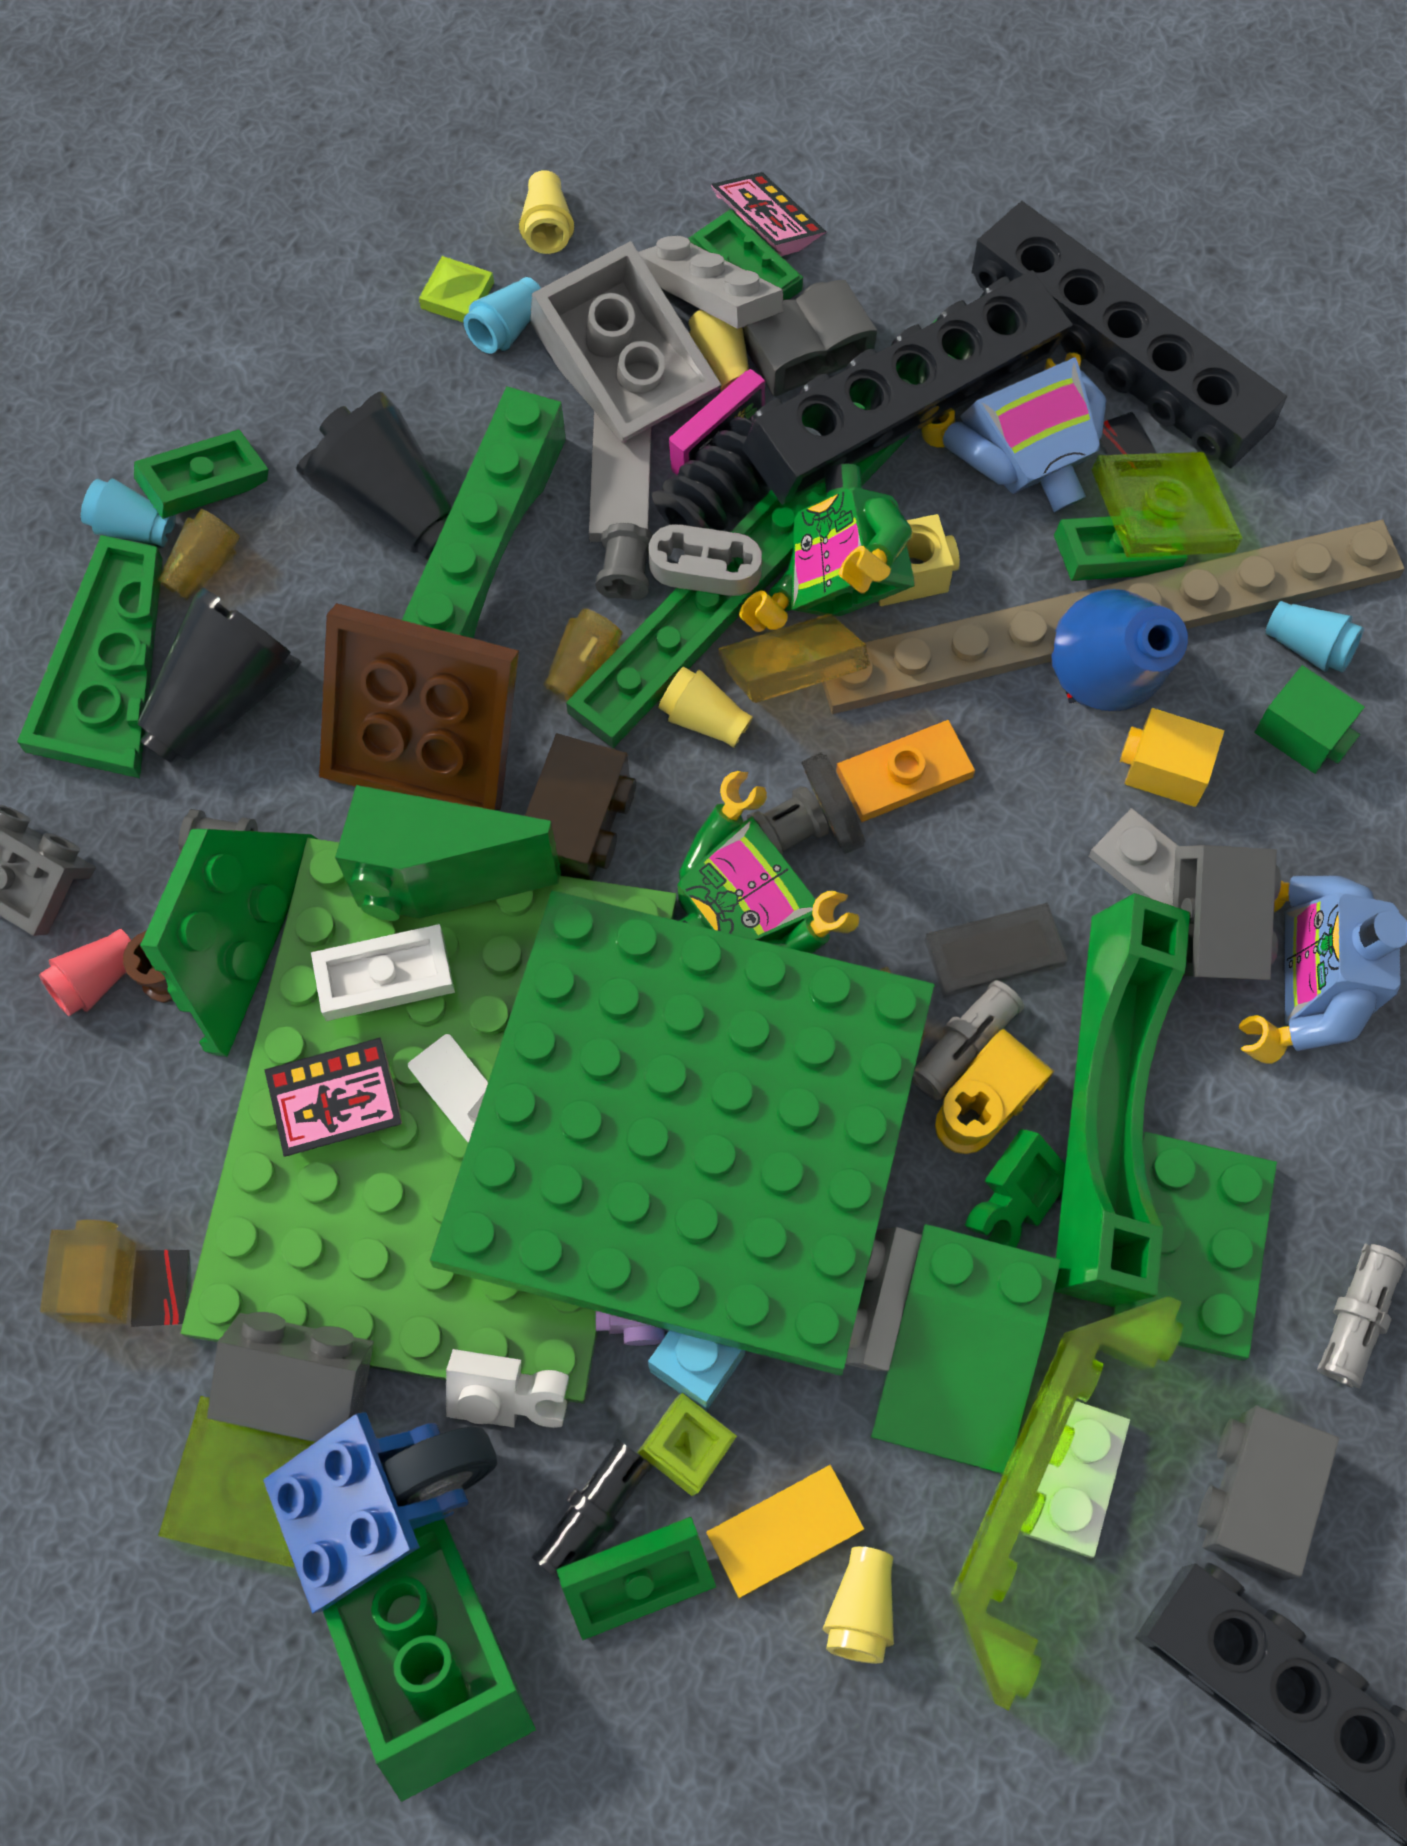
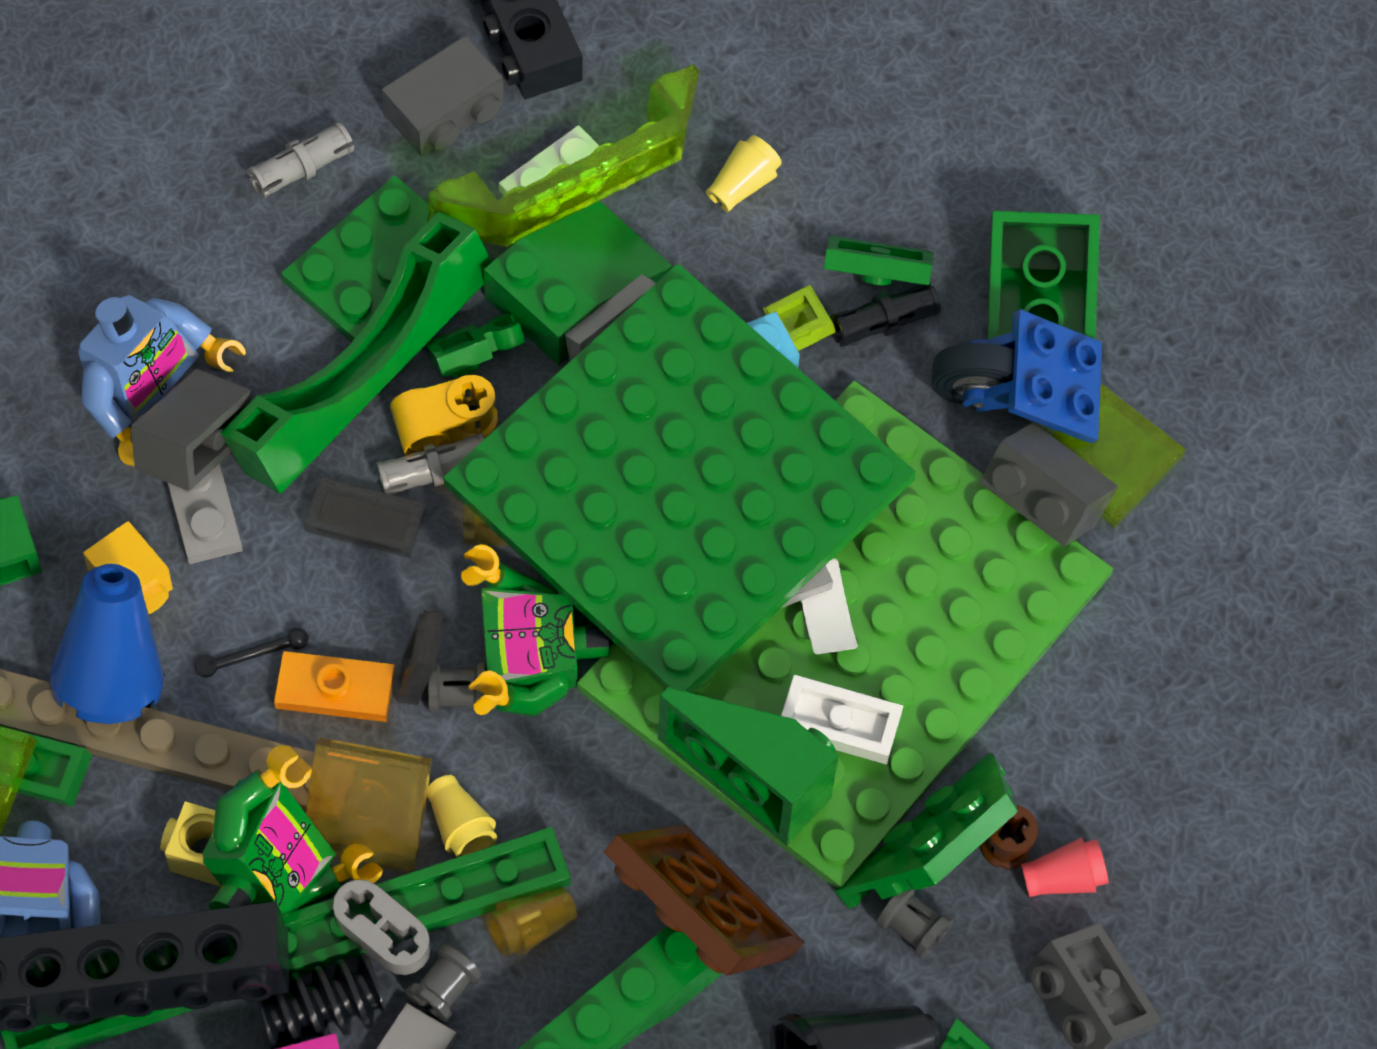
camera: 155 degrees left, 5 degrees down
(88, 1274) = (1162, 636): clear yellow brick -> none
(159, 1287) = (1114, 617): black sticker -> none
(333, 1096) = (924, 652): piece -> none
(495, 1391) = (915, 413): white plate -> none
(581, 795) = (616, 785): dark brown brick -> none
(784, 1531) = (765, 243): yellow tile -> none
(1036, 729) = (207, 665): none -> black hinge

